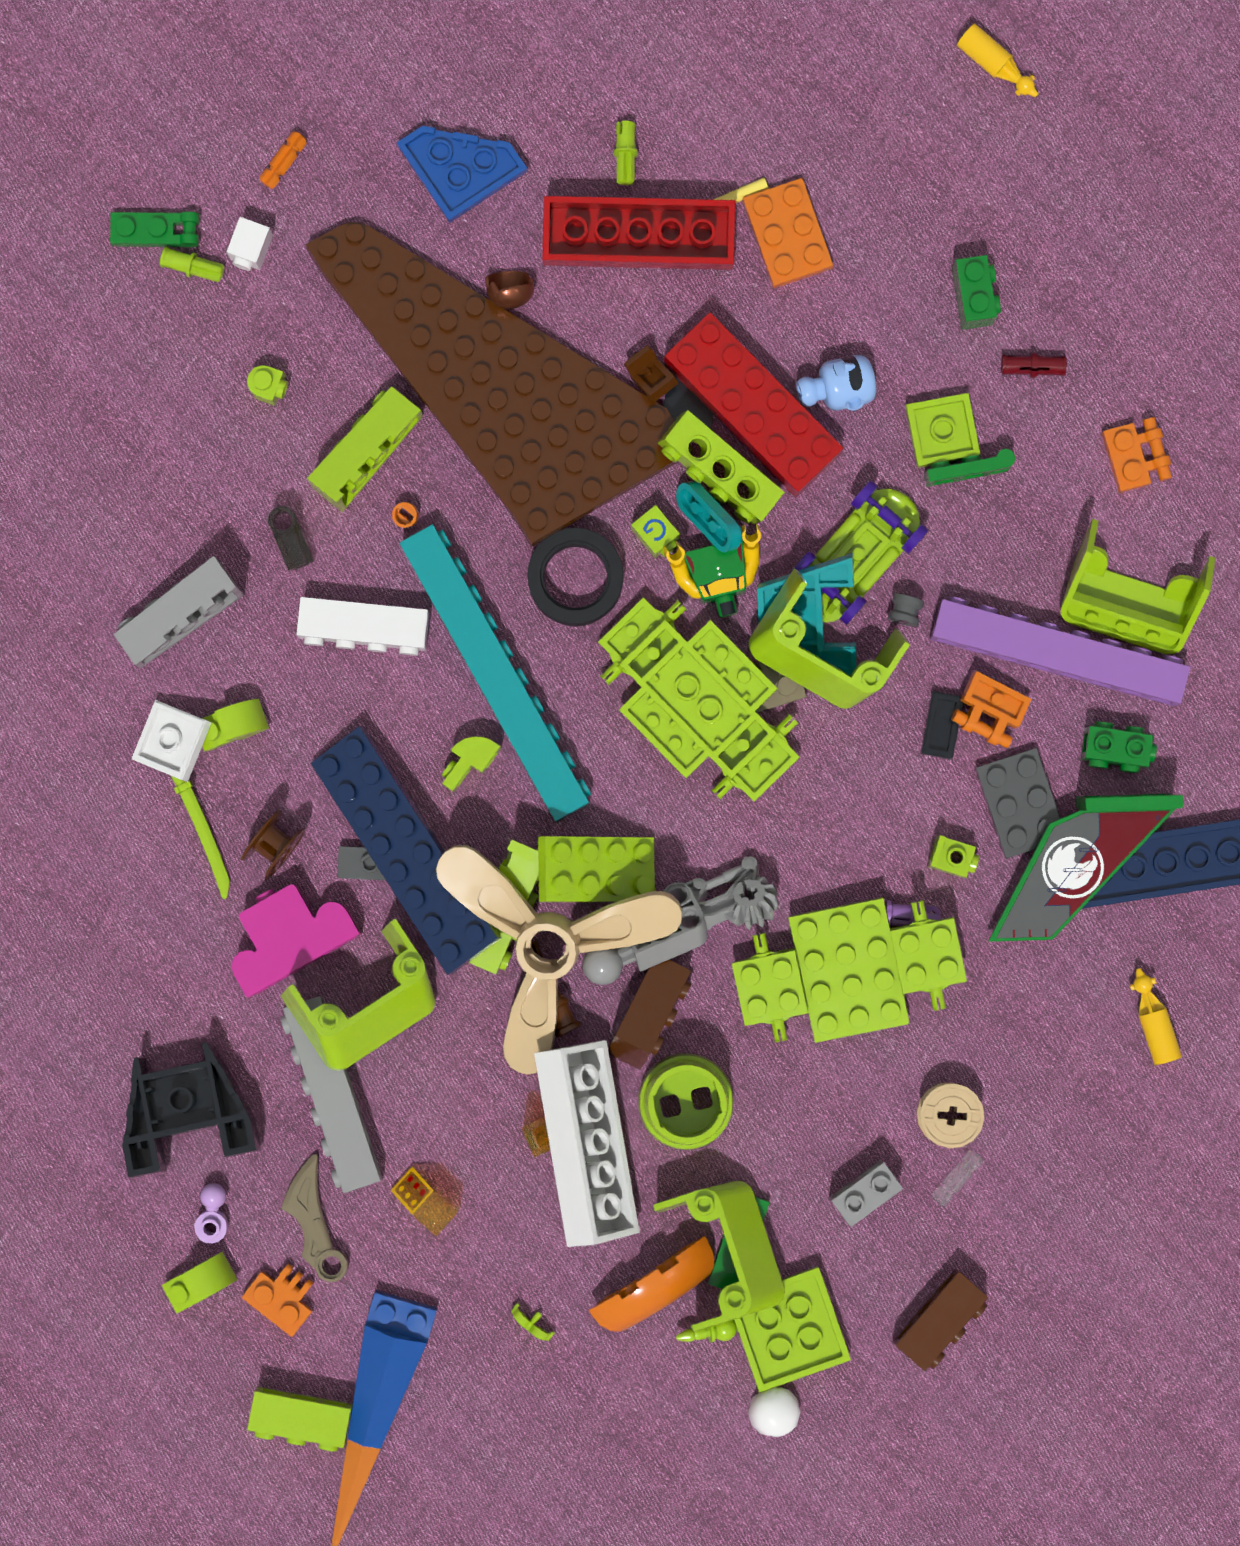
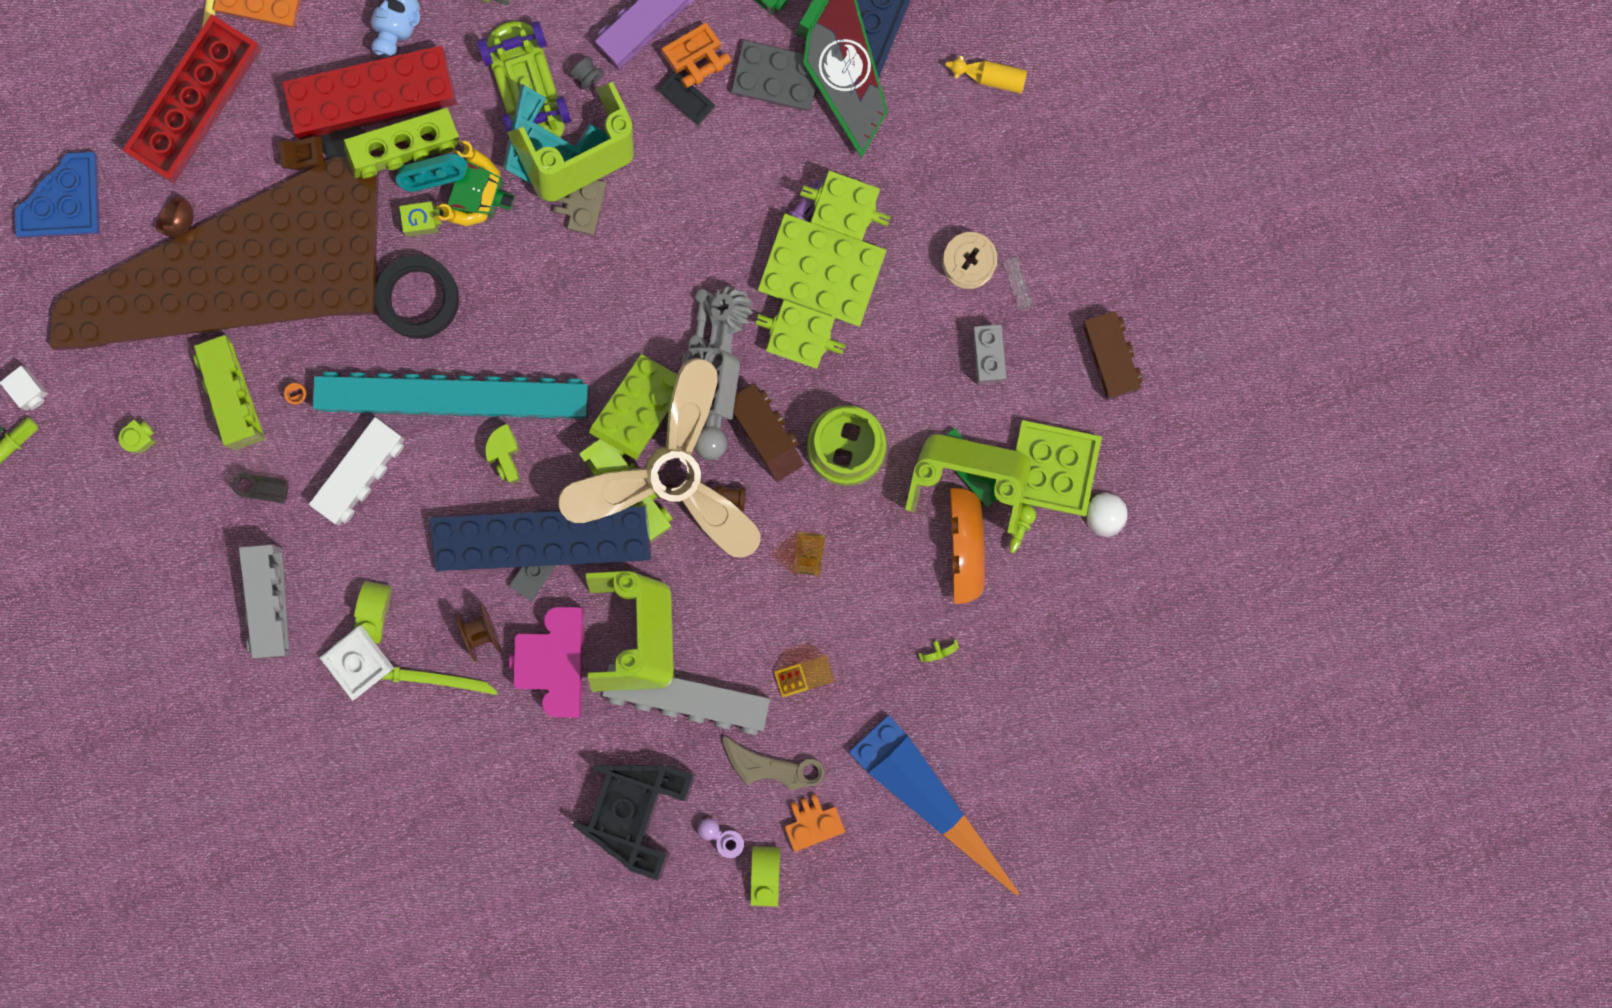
camera: 60 degrees left, 0 degrees up
(300, 1418) = (907, 860): lime brick -> none
(586, 1143) = (832, 532): white brick -> none
(625, 152) = (127, 74): lime axle -> none
(698, 699) = (560, 260): lime piece -> none
(941, 860) = (781, 155): lime brick -> none

